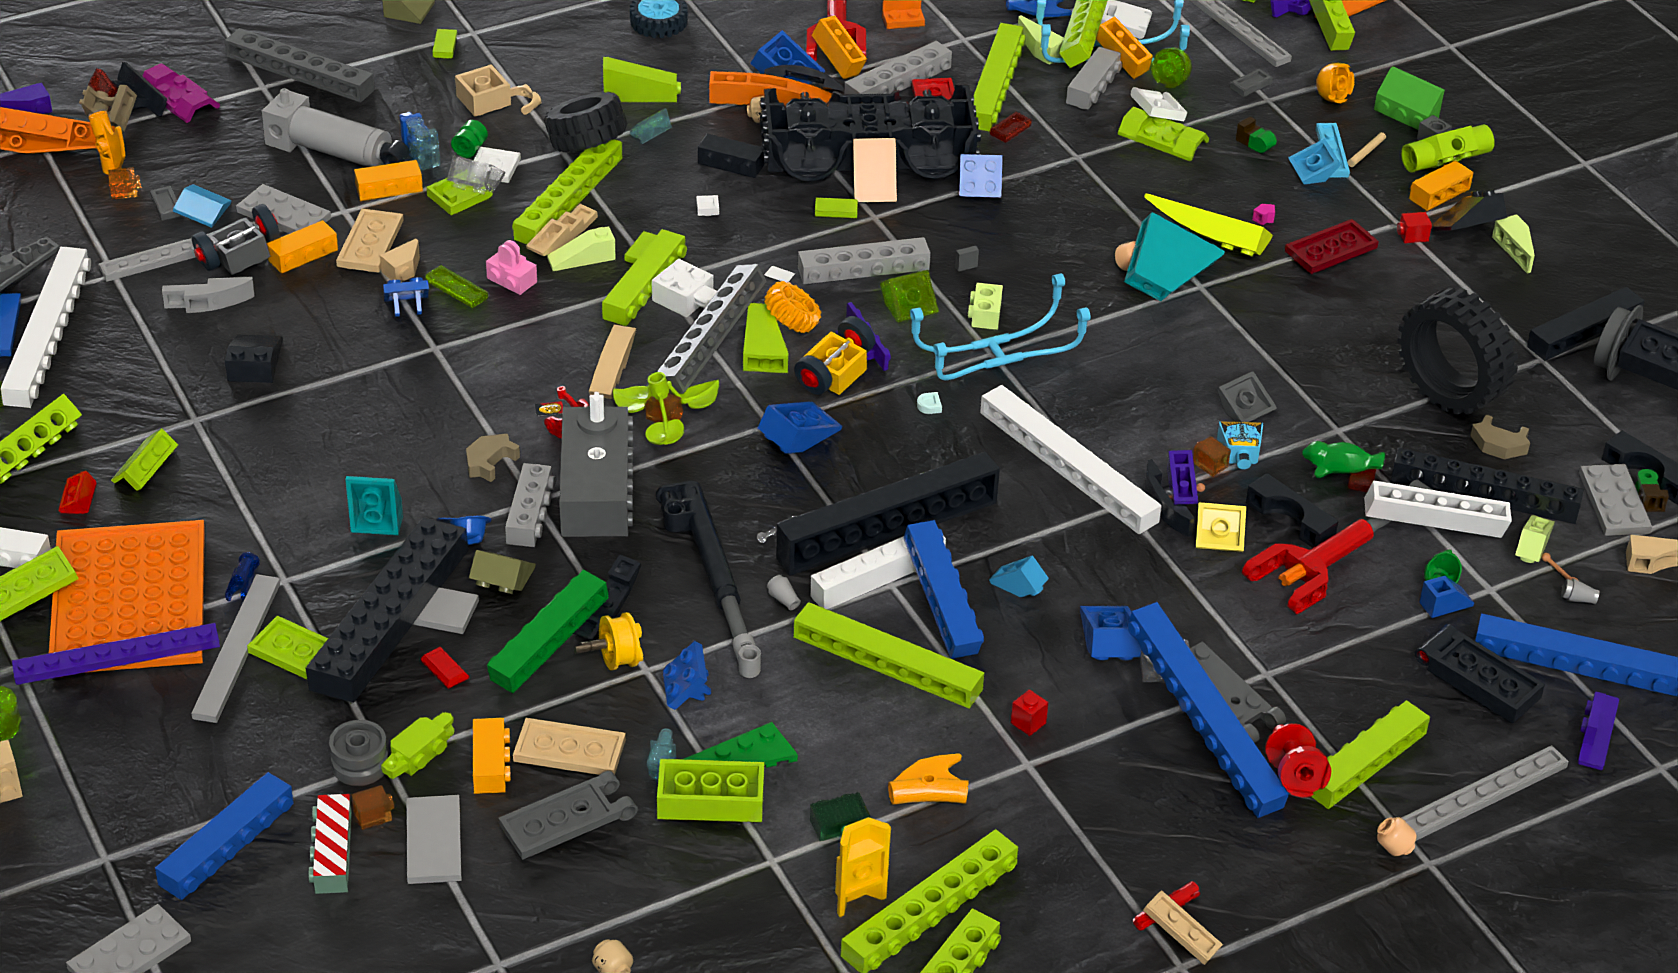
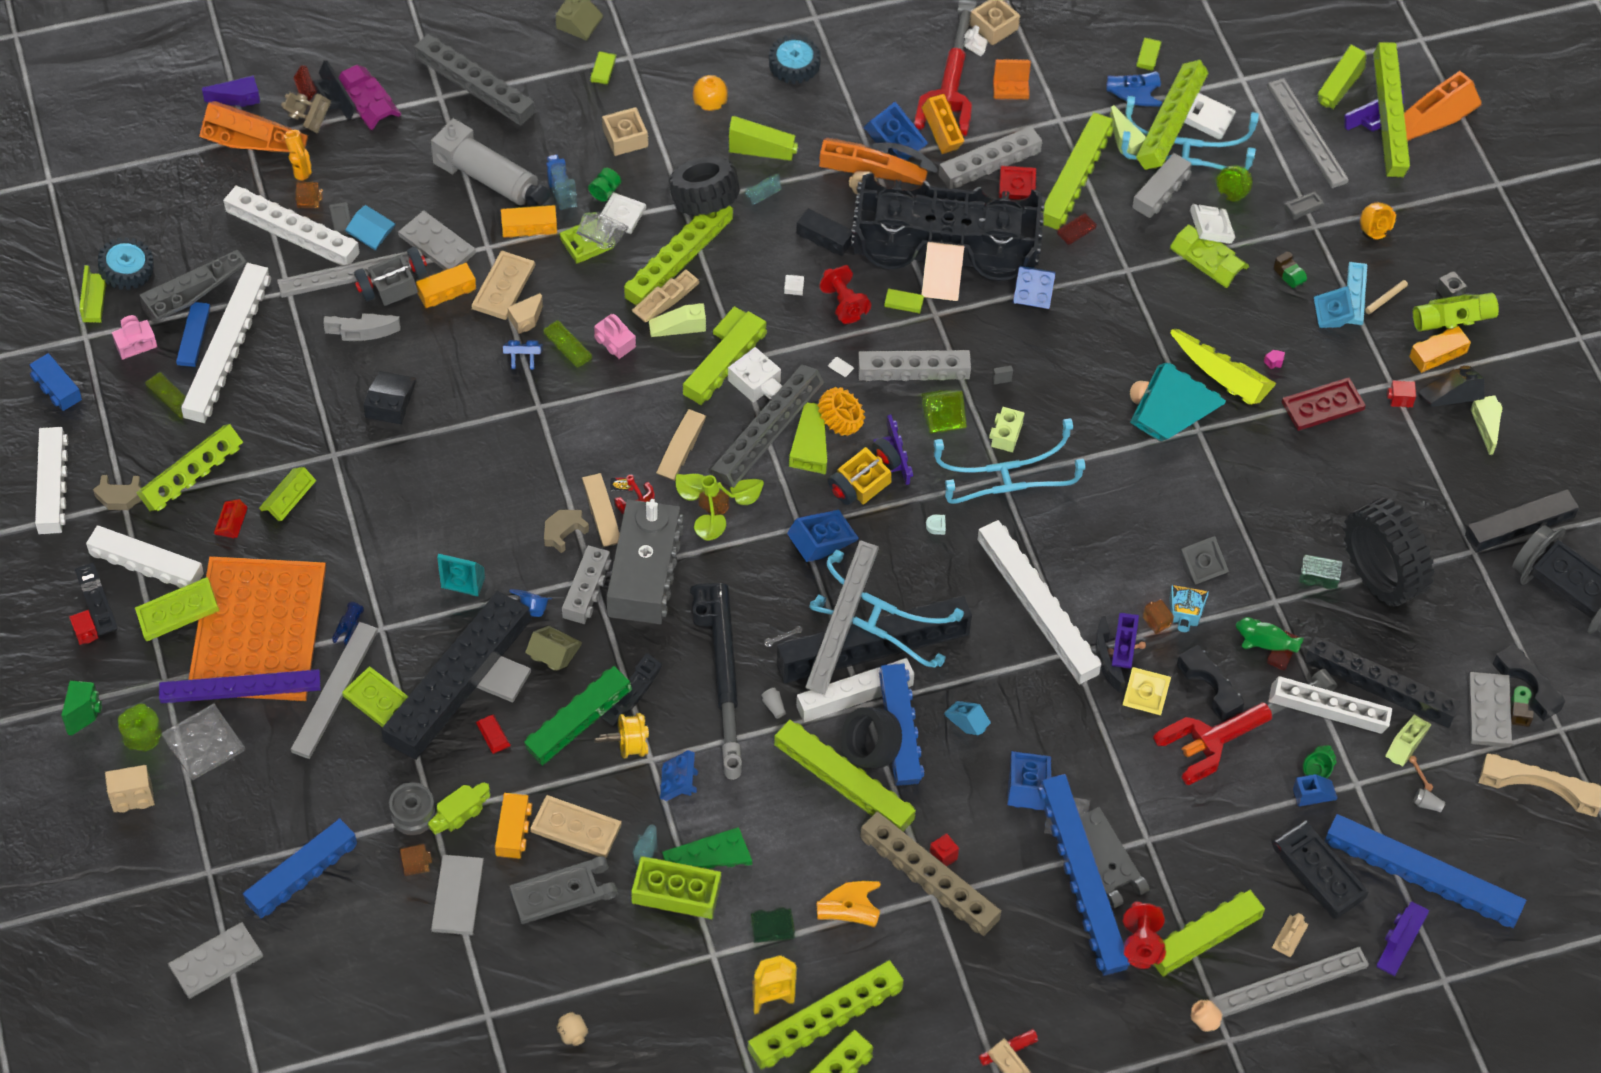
camera: 10 degrees right, 15 degrees up
(77, 719) = (203, 742): none -> clear plate
(107, 212) = (291, 226): none -> white brick
(332, 843) = (379, 888): brick -> none
(526, 91) = (663, 133): tan cap -> none
(531, 431) = (601, 509): none -> tan slope
(571, 50) = (710, 92): none -> light orange cylinder
(778, 211) = (851, 304): none -> red piece
(850, 481) = (842, 617): none -> light grey tile
(884, 491) = (869, 626): none -> medium azure bar
(890, 600) = (854, 734): none -> black tyre
(1019, 738) = (958, 888): none -> dark tan brick
(1117, 37) = (1195, 152): light orange brick -> none
(1380, 393) = (1320, 571): none -> clear green brick
(1408, 98) = (1437, 249): bright green slope -> none
(1467, 743) = (1290, 935): none -> tan hinge
(1500, 441) = (1409, 636): dark tan piece -> none

